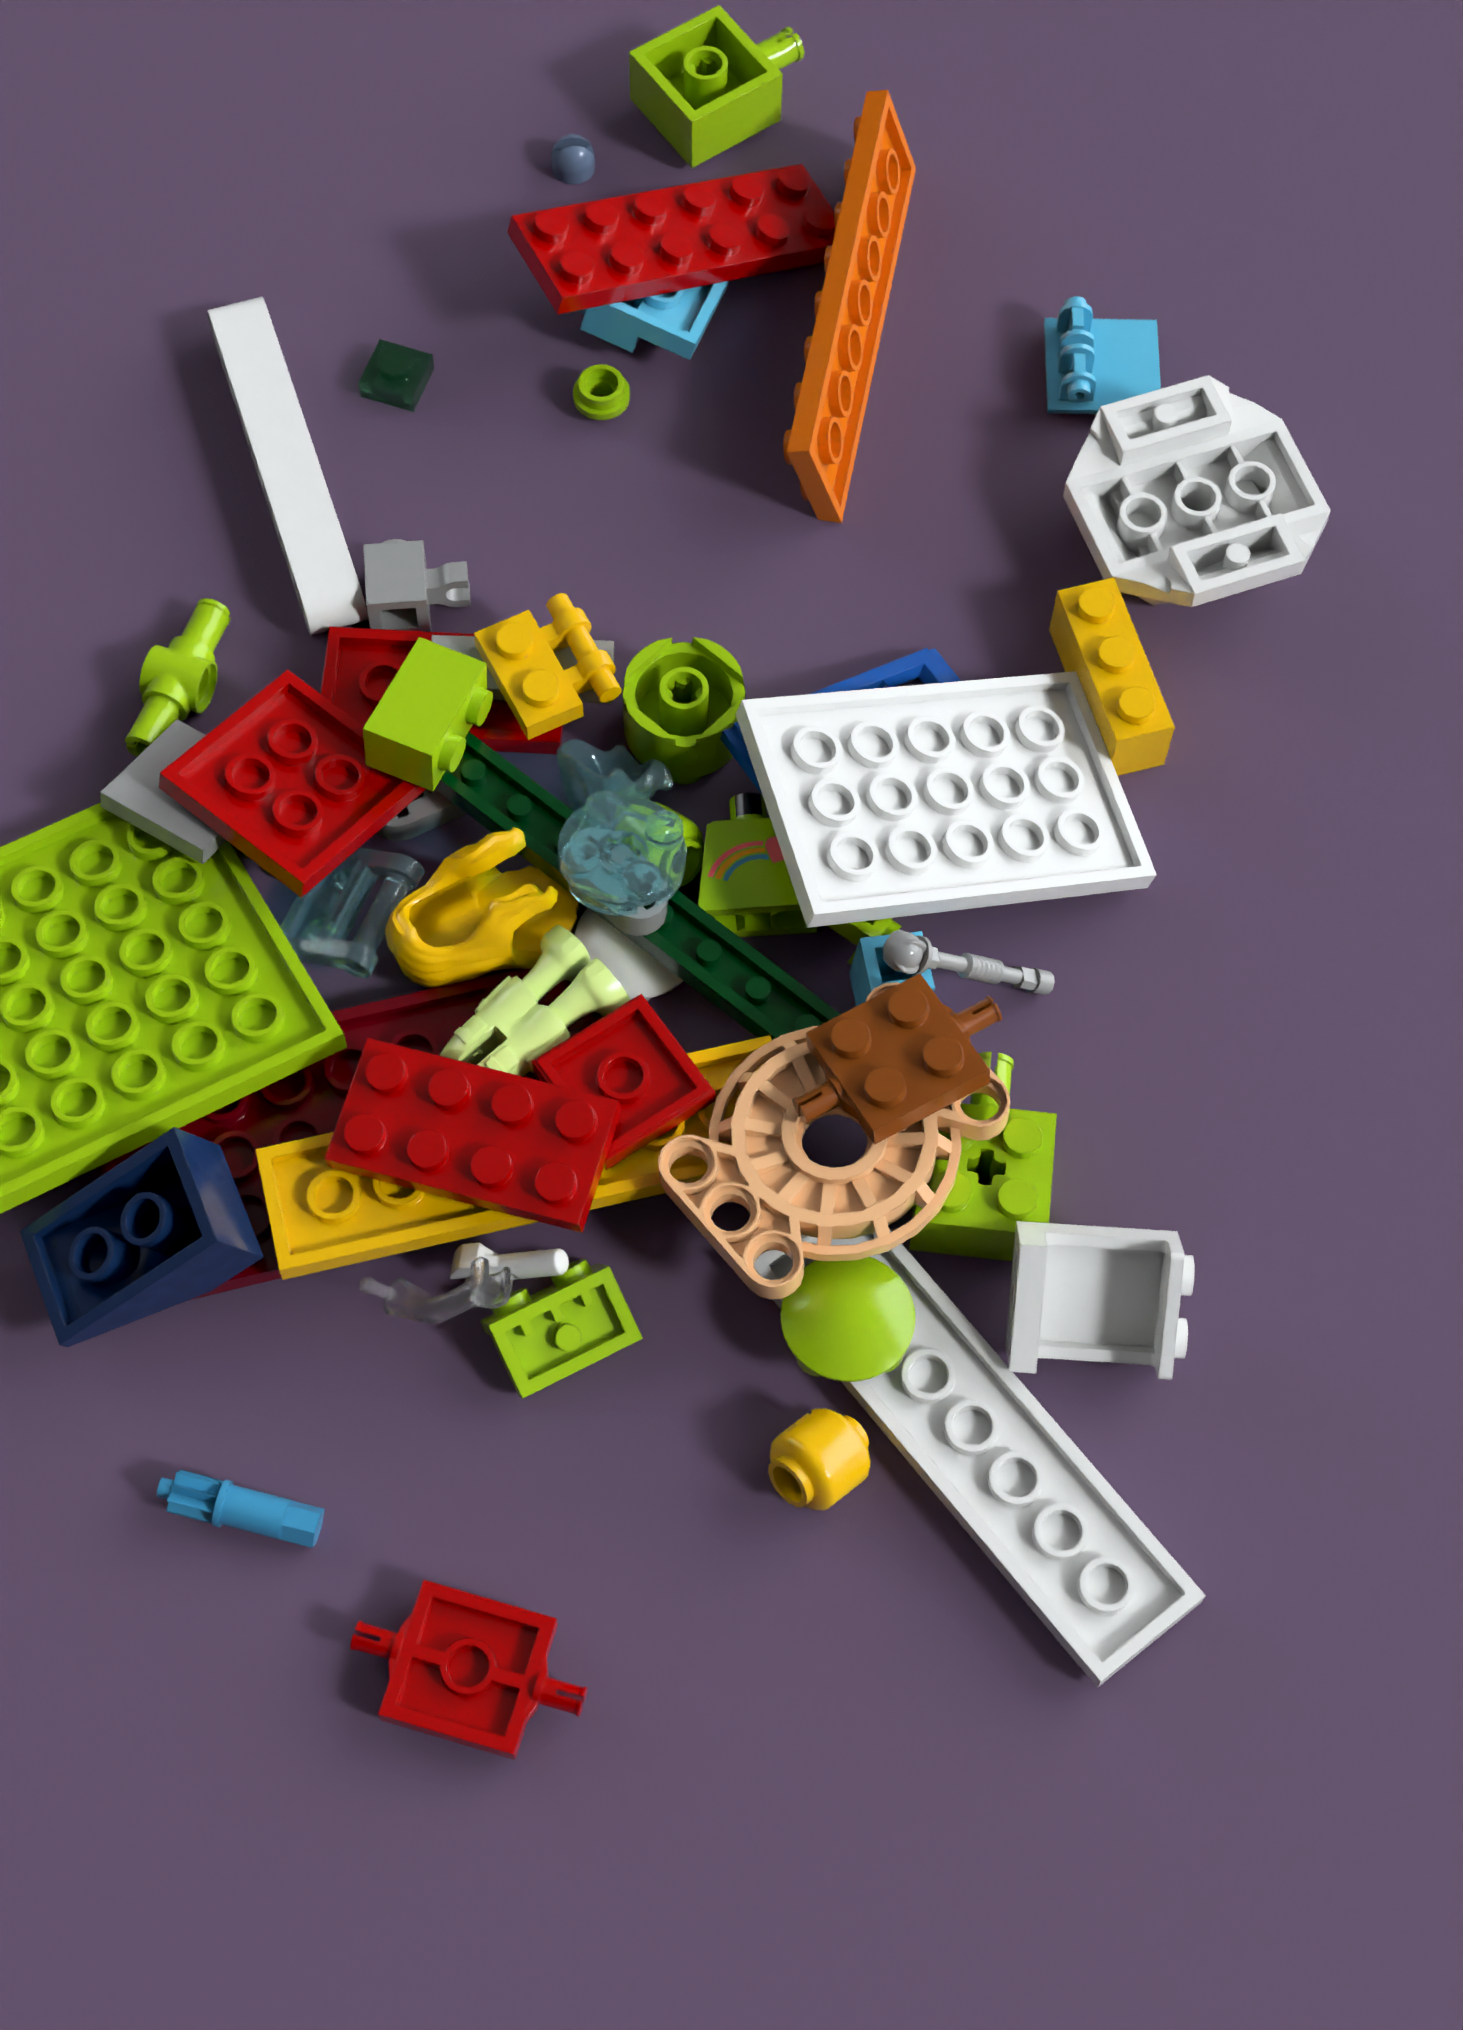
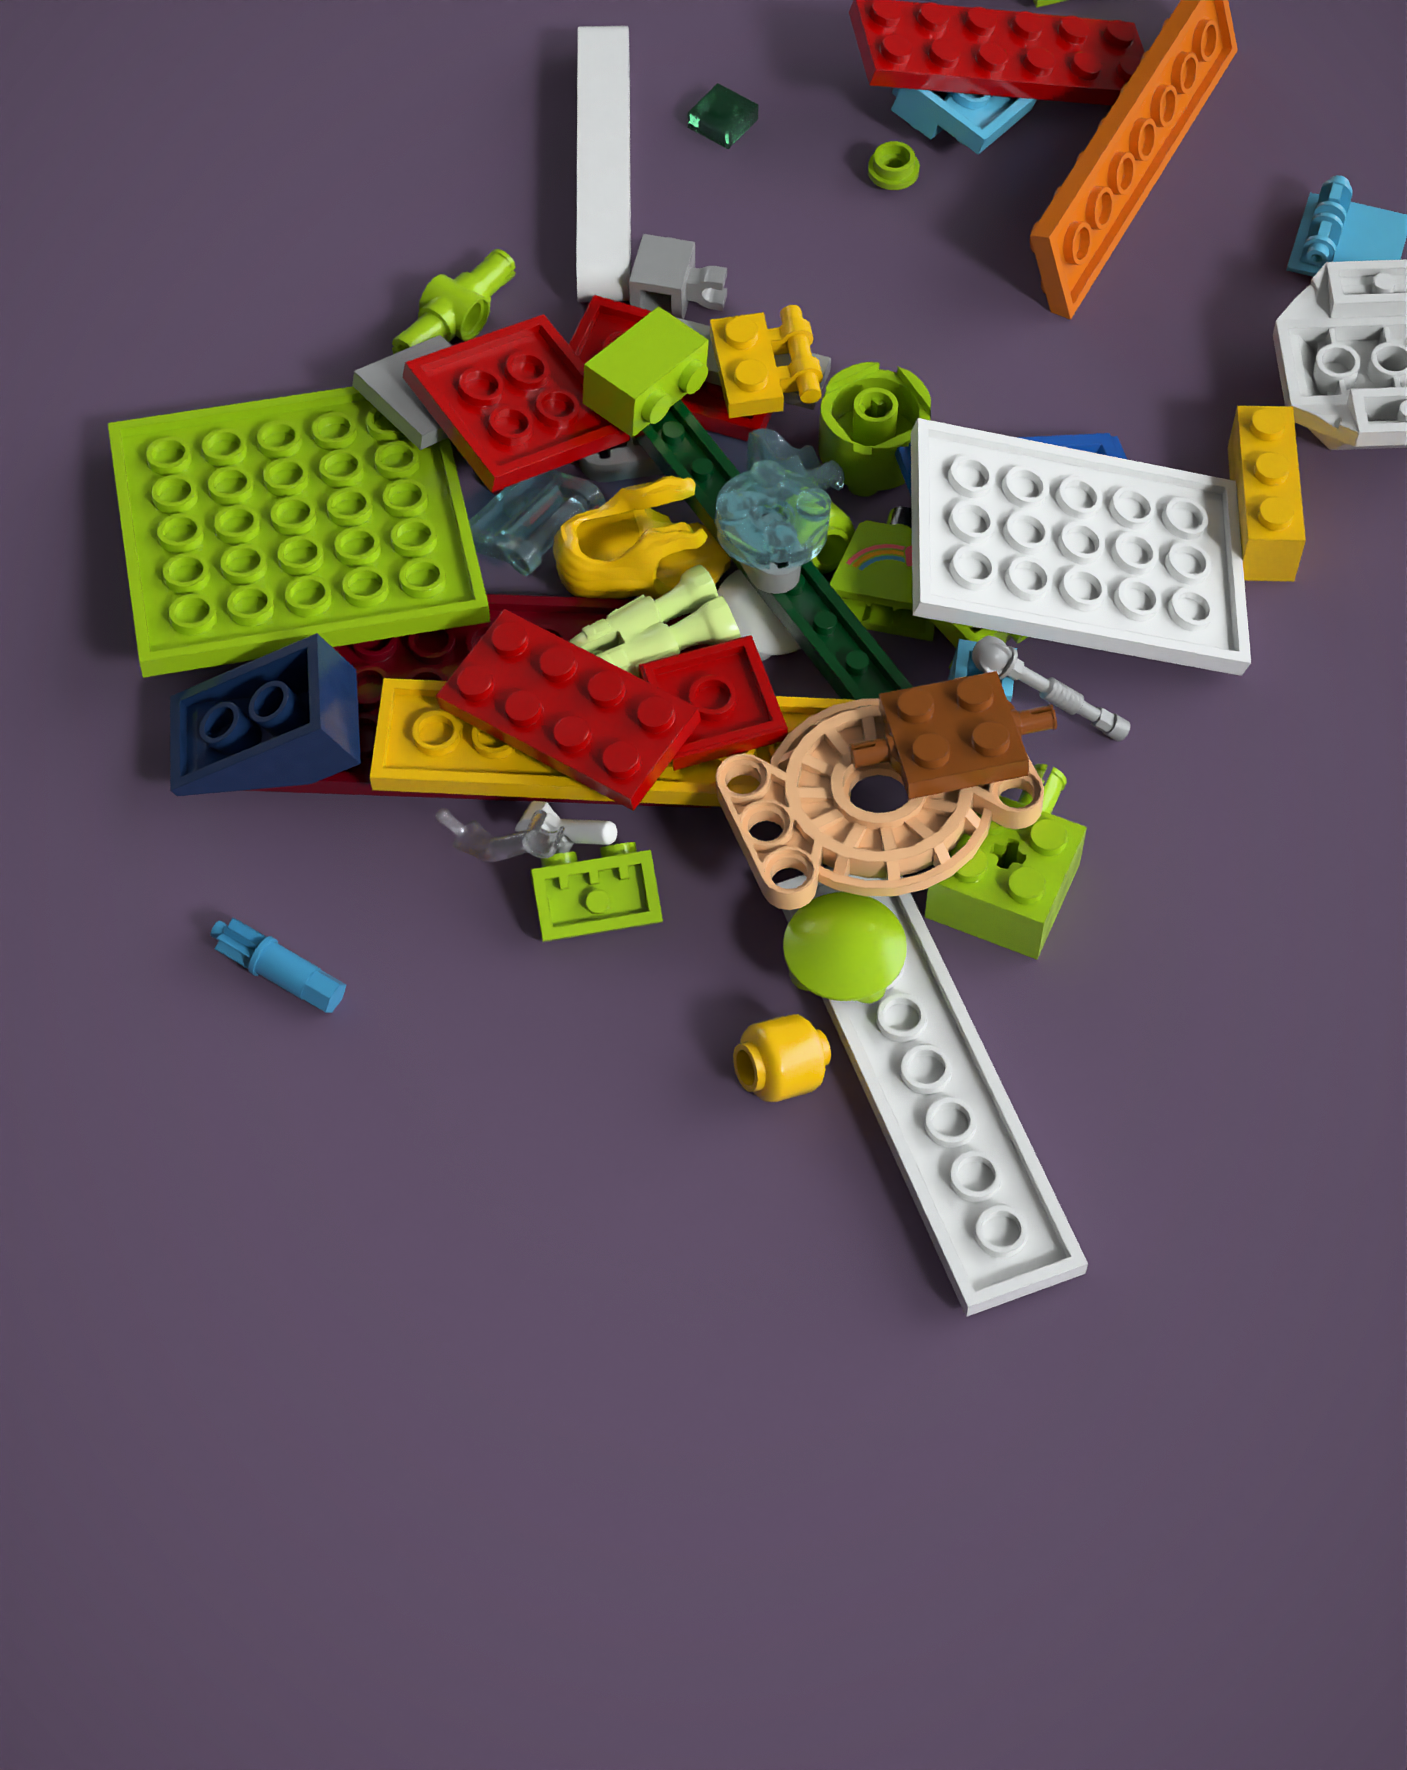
camera: 20 degrees right, 5 degrees down
(468, 1669) = (421, 1142): red plate -> none
(1097, 1296) = (1071, 987): white panel -> none

